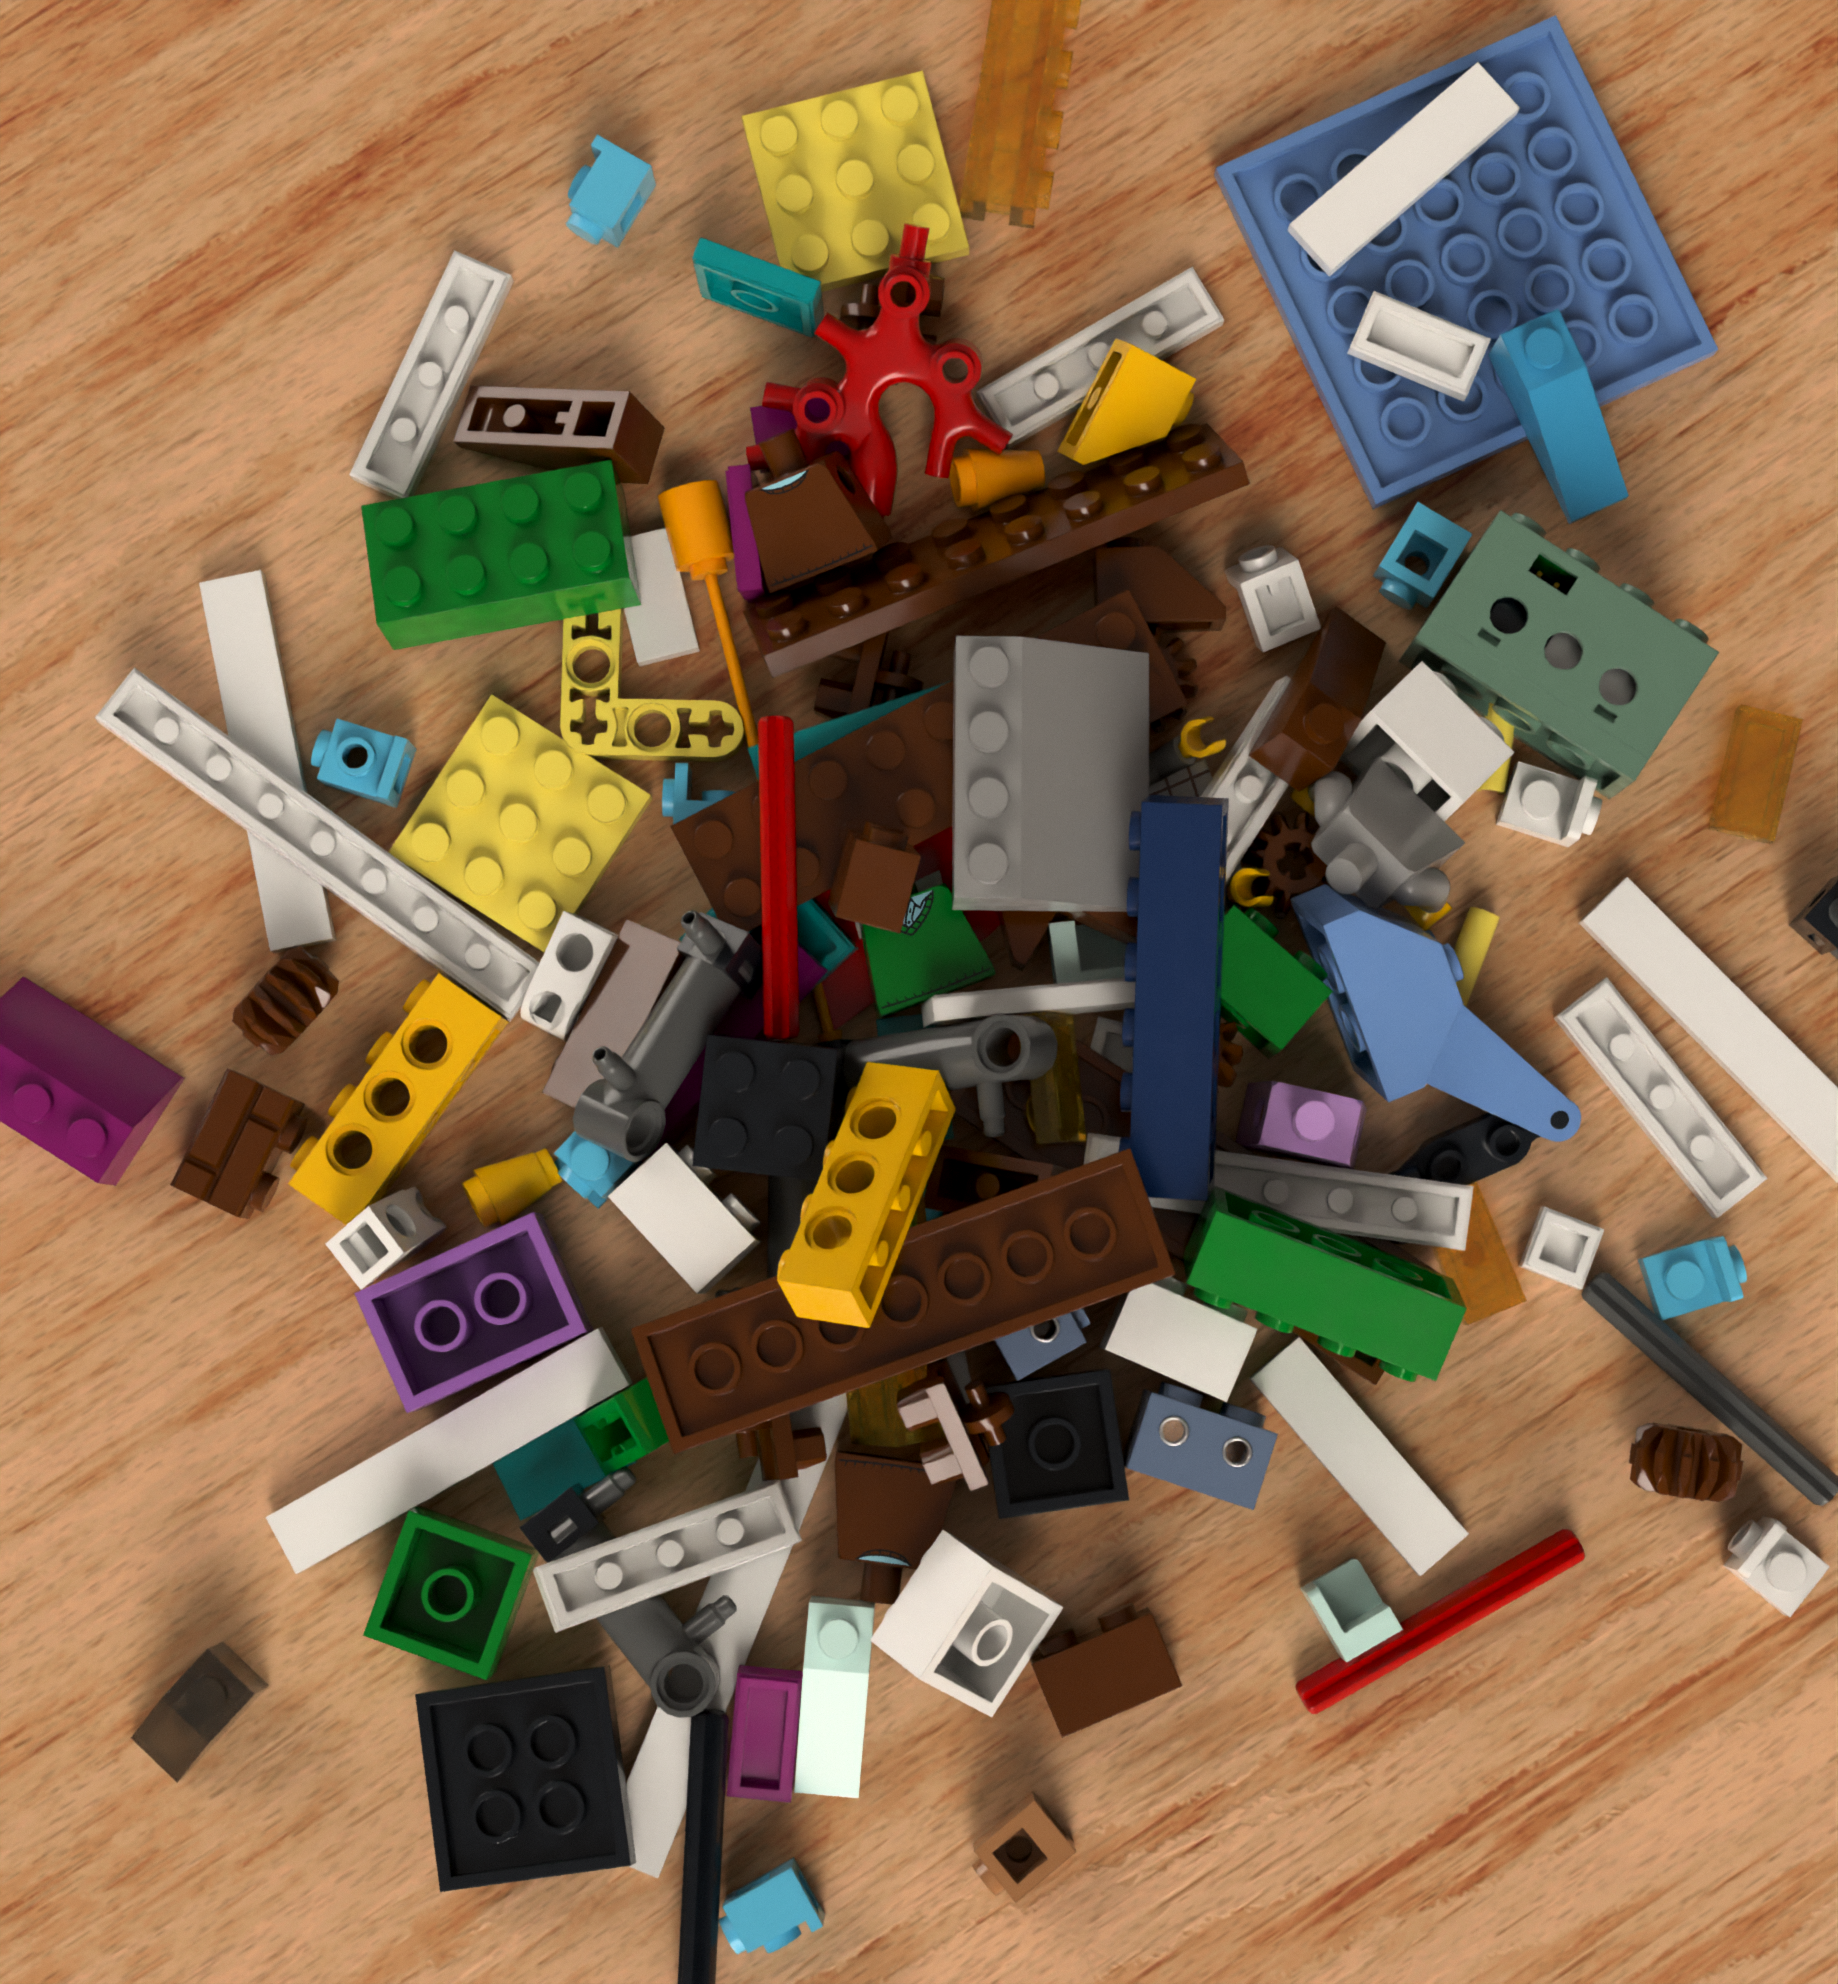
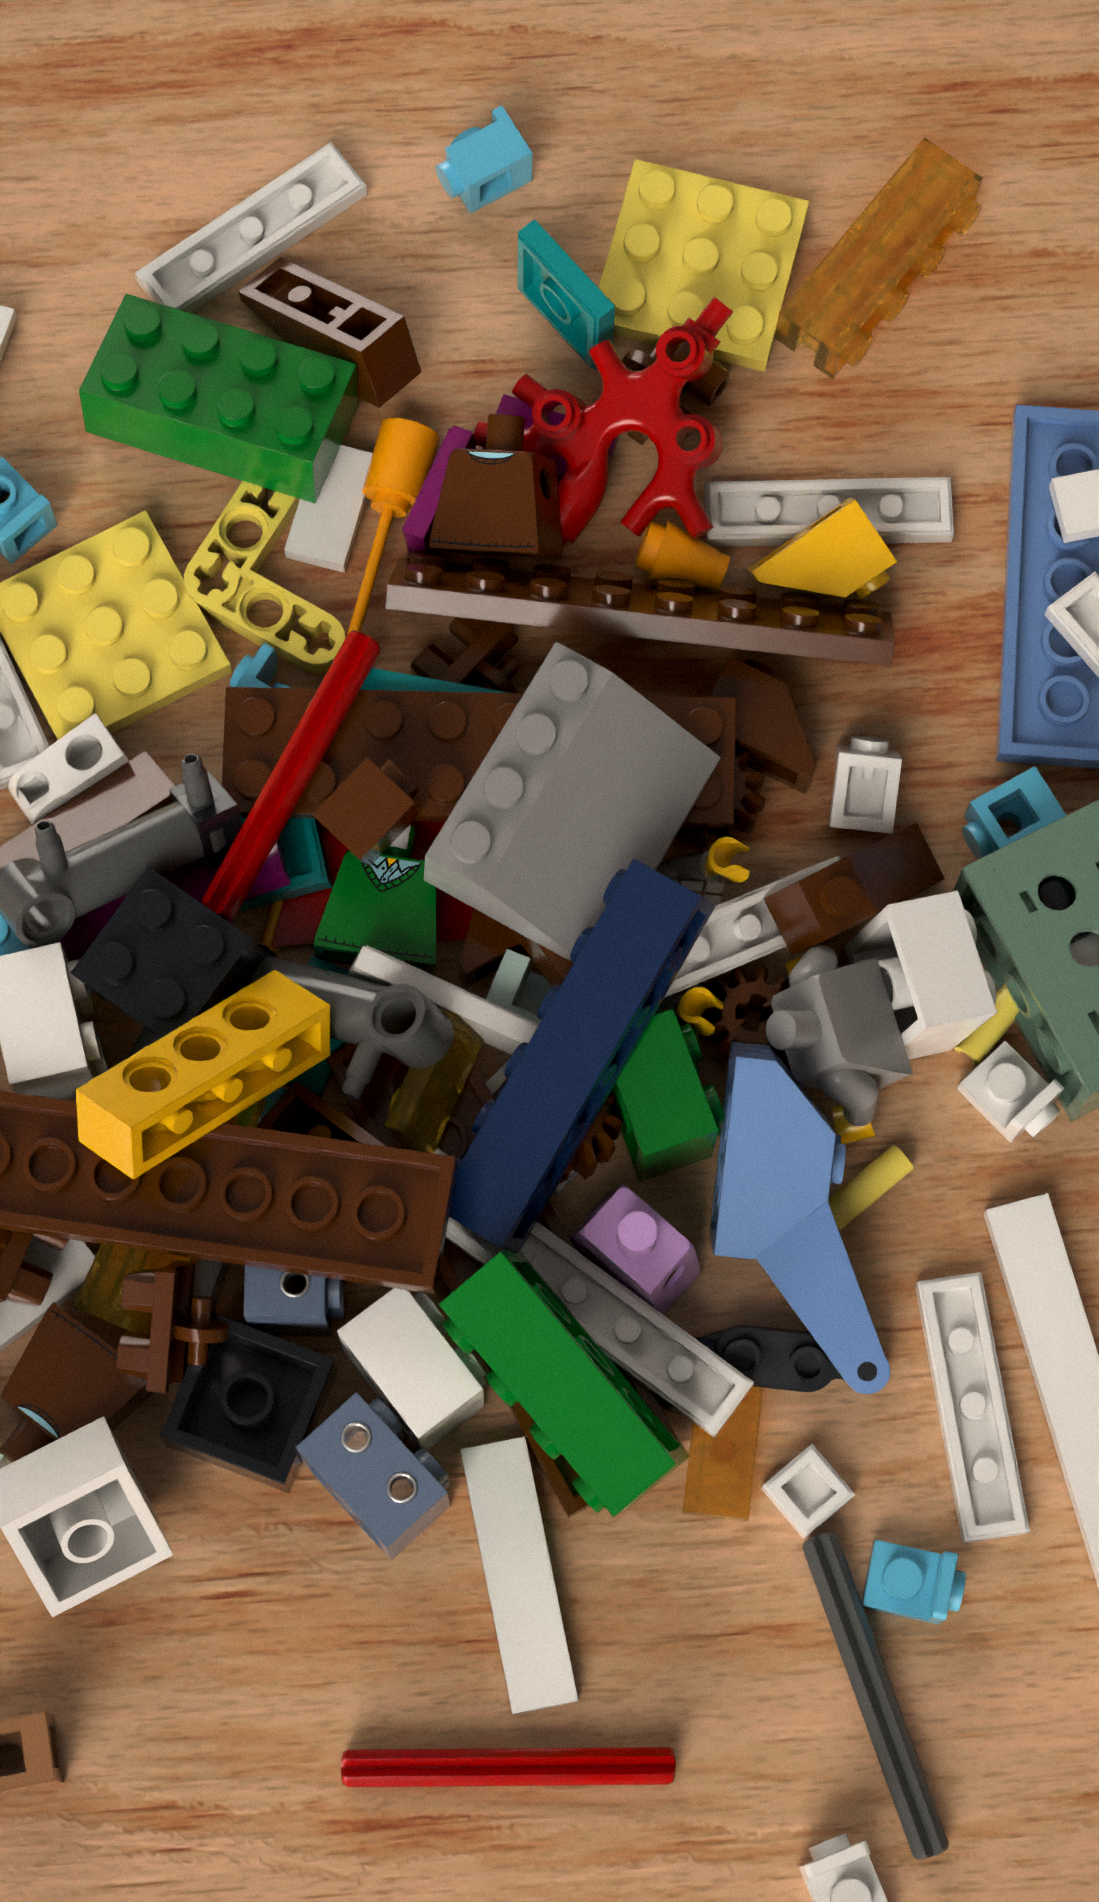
camera: 25 degrees right, 10 degrees down
(1104, 1669) = (178, 1634): reddish brown brick -> none
(1350, 1609) = (432, 1707): light aqua panel -> none
(1686, 1462) = (811, 1741): reddish brown gear -> none

